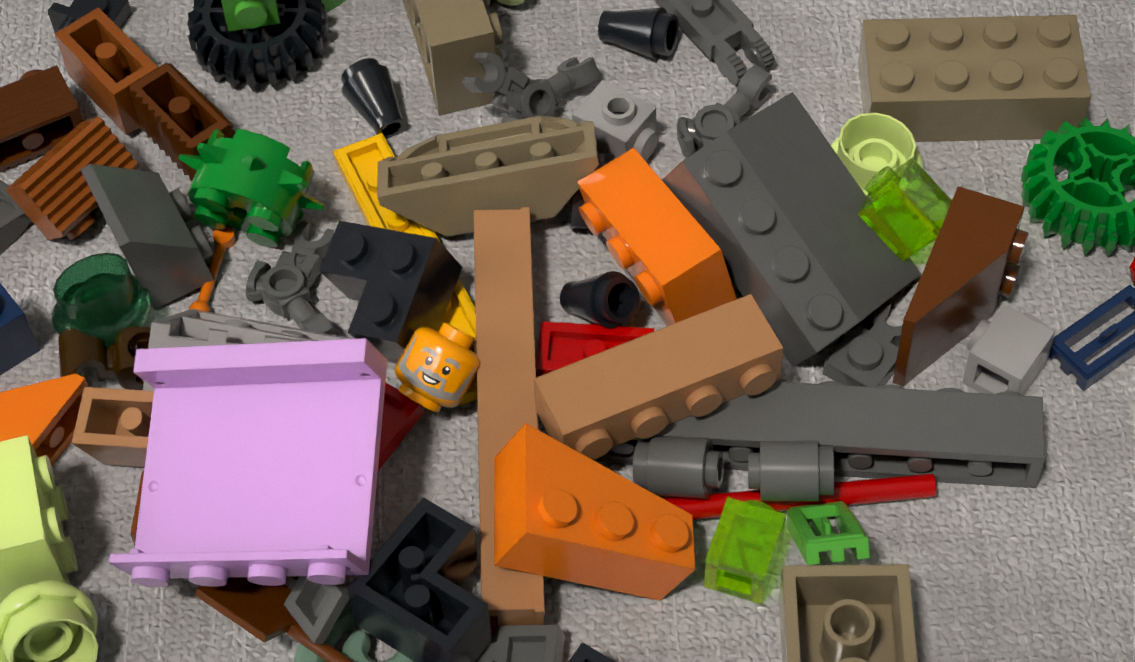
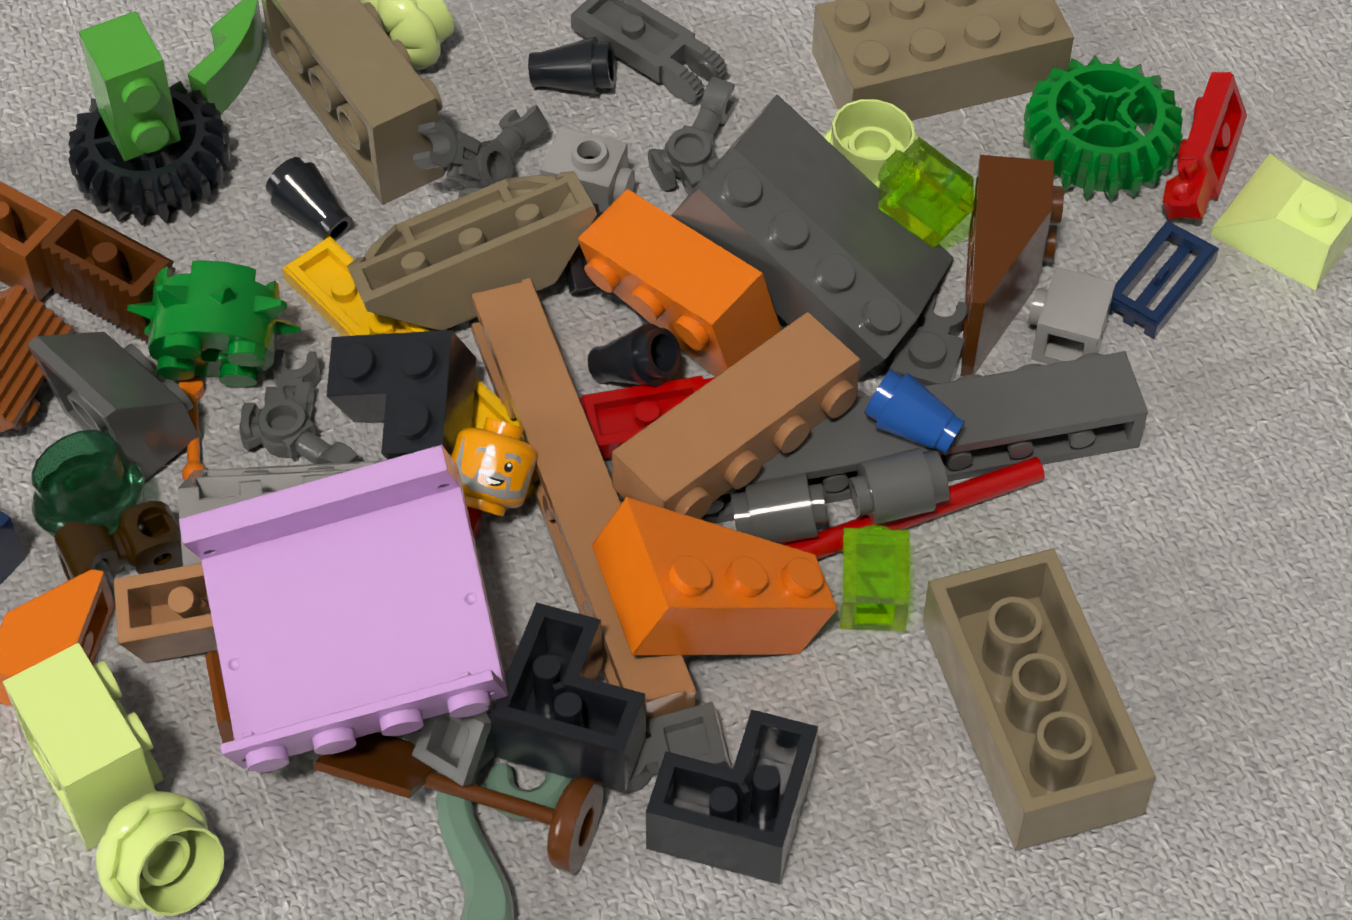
camera: 20 degrees left, 0 degrees up
(810, 545) = (964, 537): bright green tile -> none
(821, 407) = (913, 412): none -> blue cone

